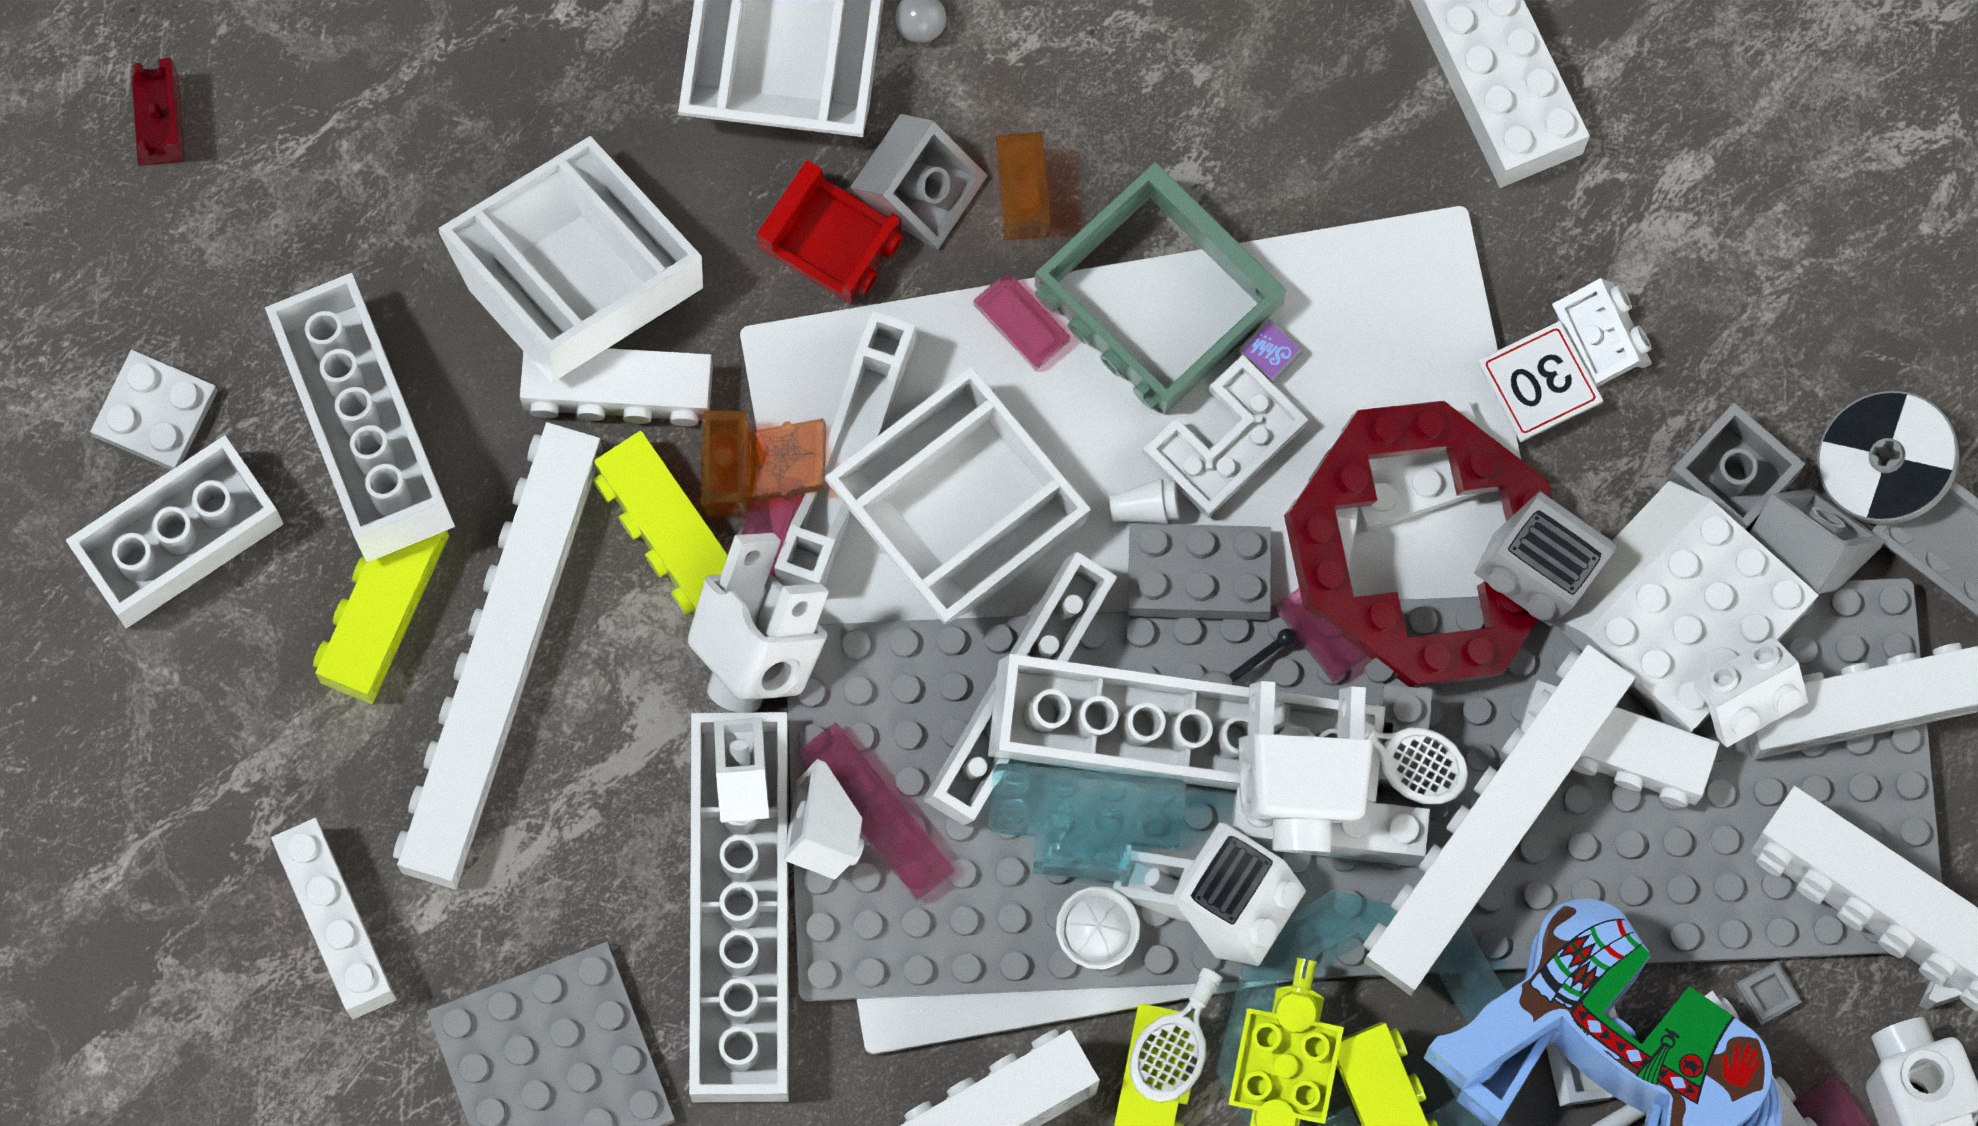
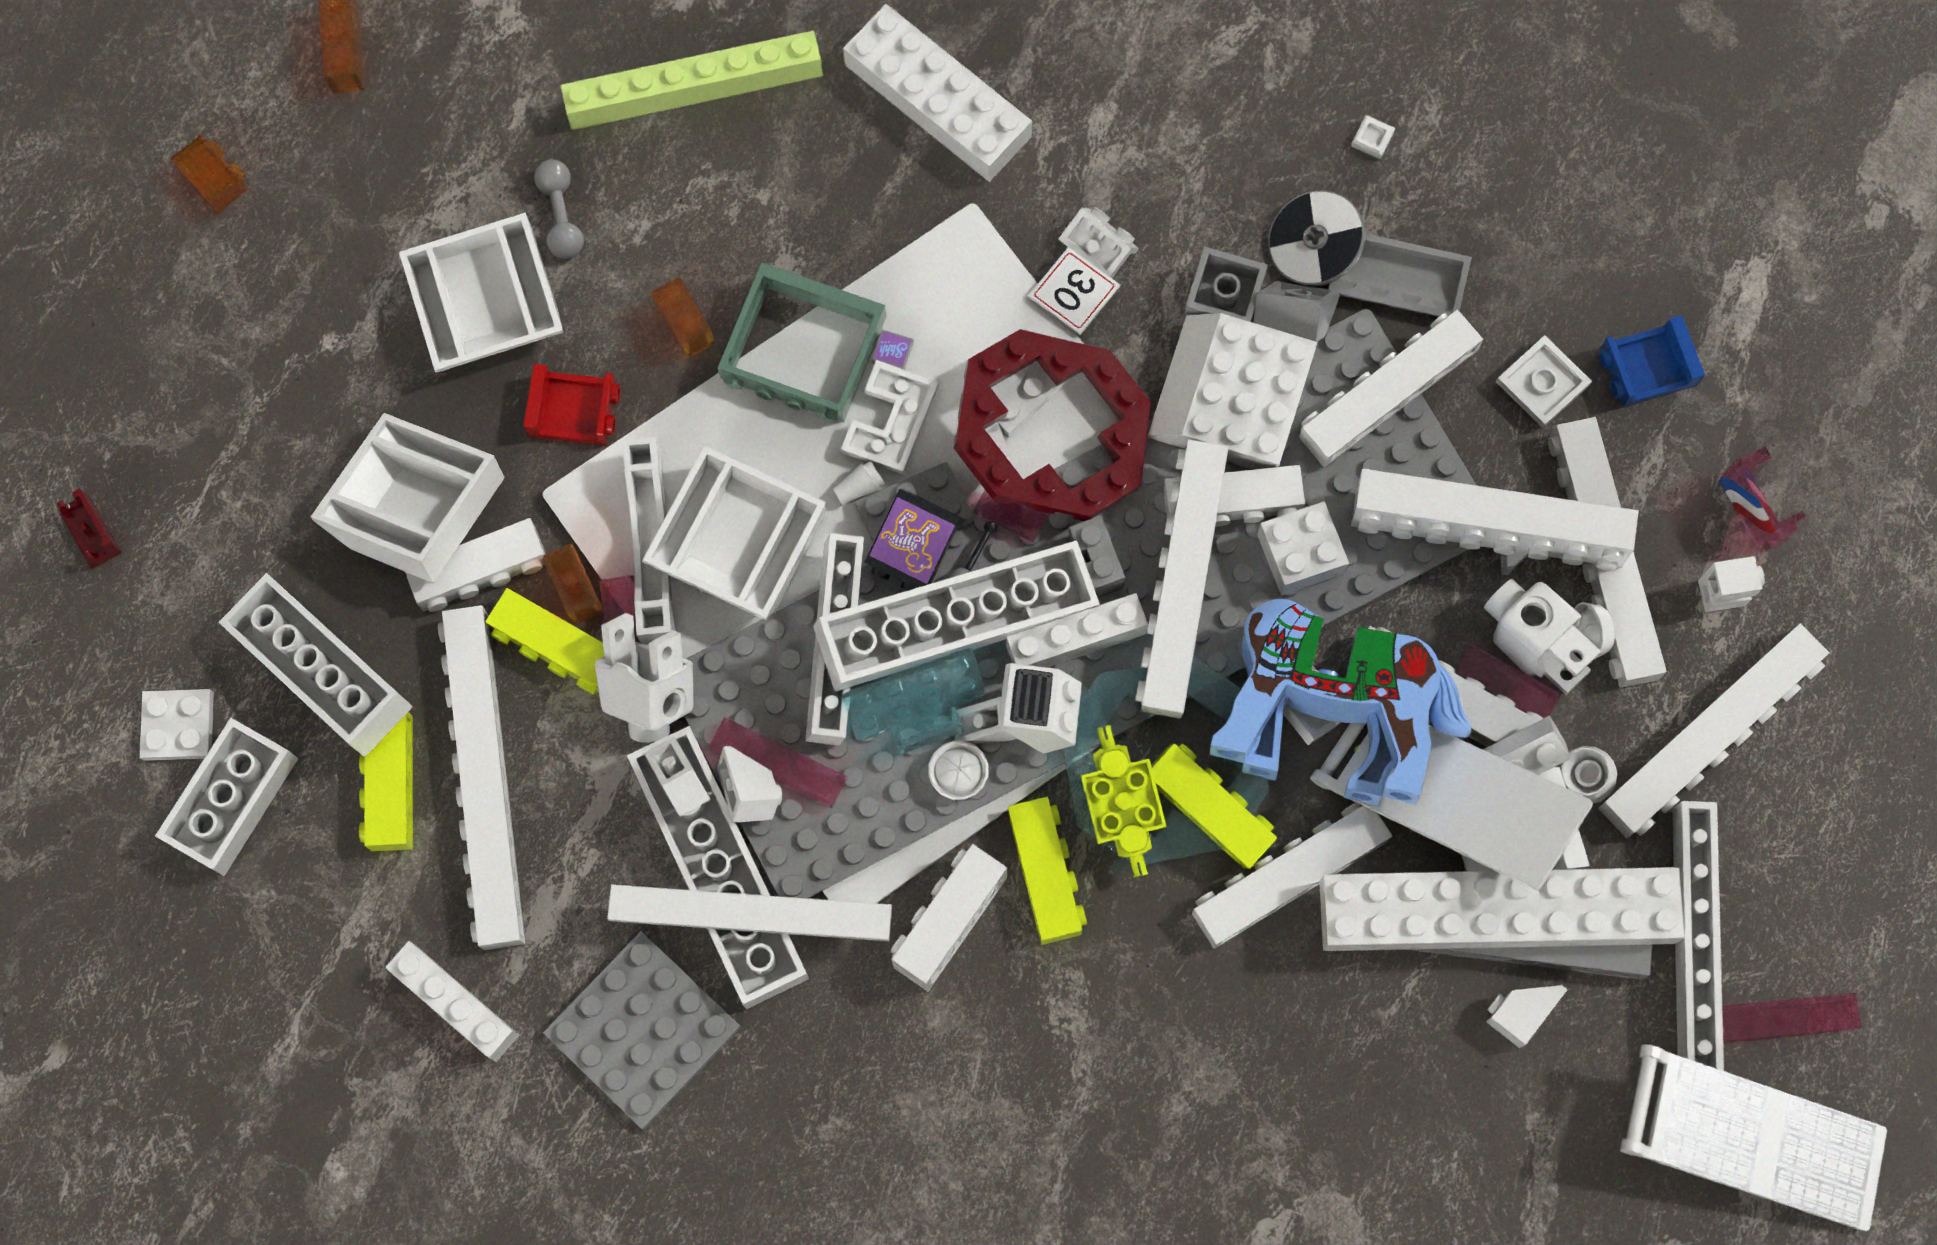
camera: 20 degrees left, 0 degrees up
(752, 984) = (750, 912): none -> white tile
(787, 460) = (612, 563): clear orange piece -> none
(920, 179) = (613, 342): light grey slope -> none
(1021, 320) = (723, 404): clear pink tile -> none
(1178, 609) = (912, 540): none -> panel
(1199, 999) = (1045, 785): white piece -> none
(1301, 777) = (1047, 609): white piece -> none
(1391, 764) = (1073, 562): white piece -> none
(1544, 558) = (1133, 398): light grey slope -> none
(1672, 851) = (1302, 548): none -> white brick
(1752, 690) = (1305, 421): white bracket -> none
(1767, 993) = (1403, 611): light grey tile -> none

